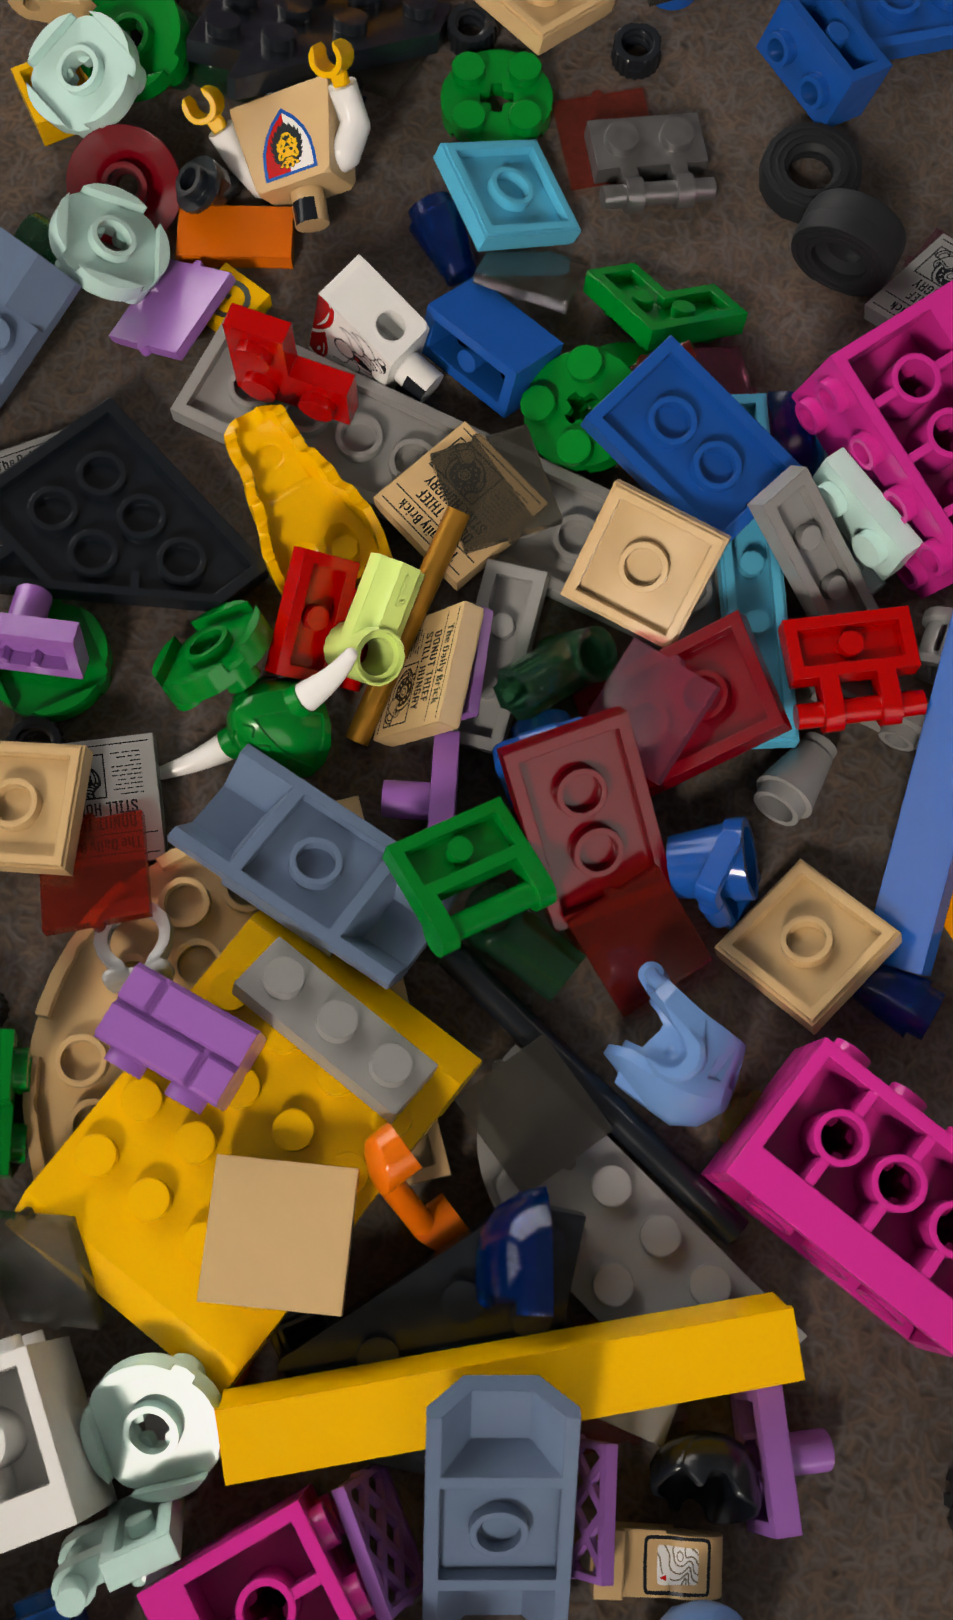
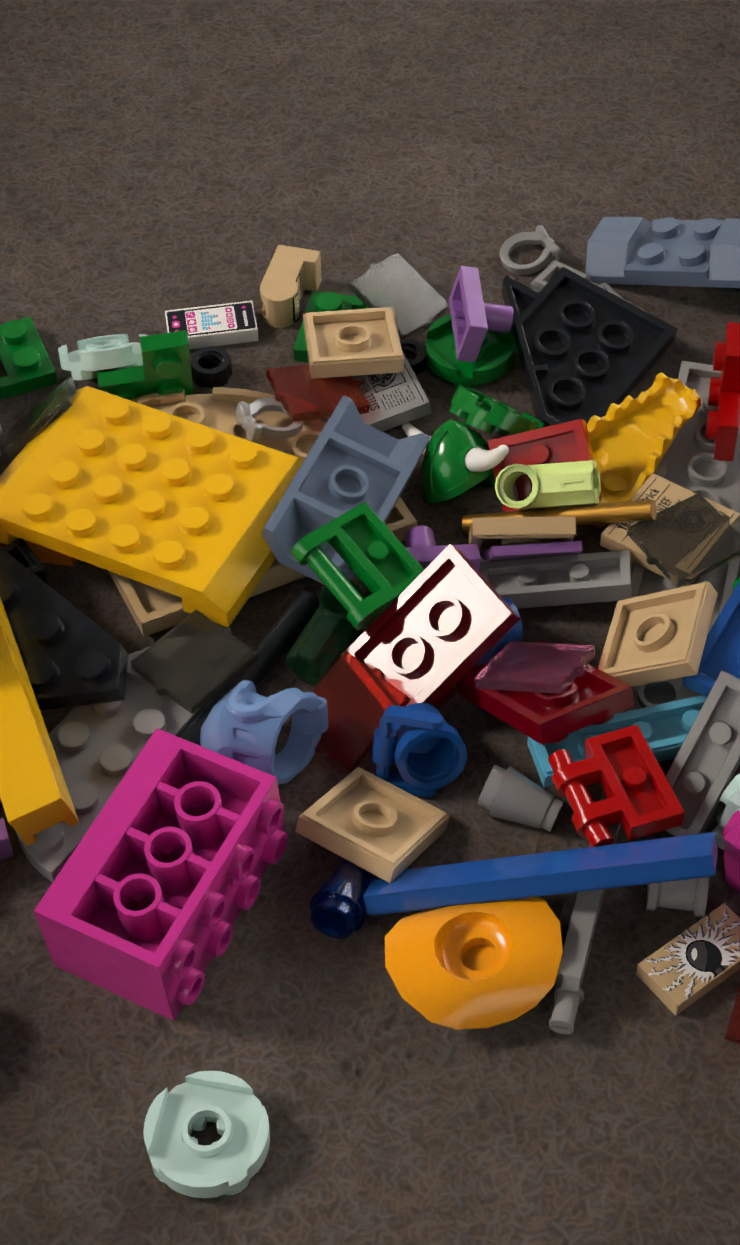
camera: 80 degrees right, 25 degrees down
(179, 1038) = (196, 419): medium lavender brick -> none
(279, 1235) = (73, 501): tan tile -> none
(334, 1029) = (223, 506): light grey plate -> none
(389, 1166) = (135, 546): orange bar -> none
(517, 1255) = (79, 641): clear blue brick -> none
(555, 670) = (546, 602): clear green piece -> none

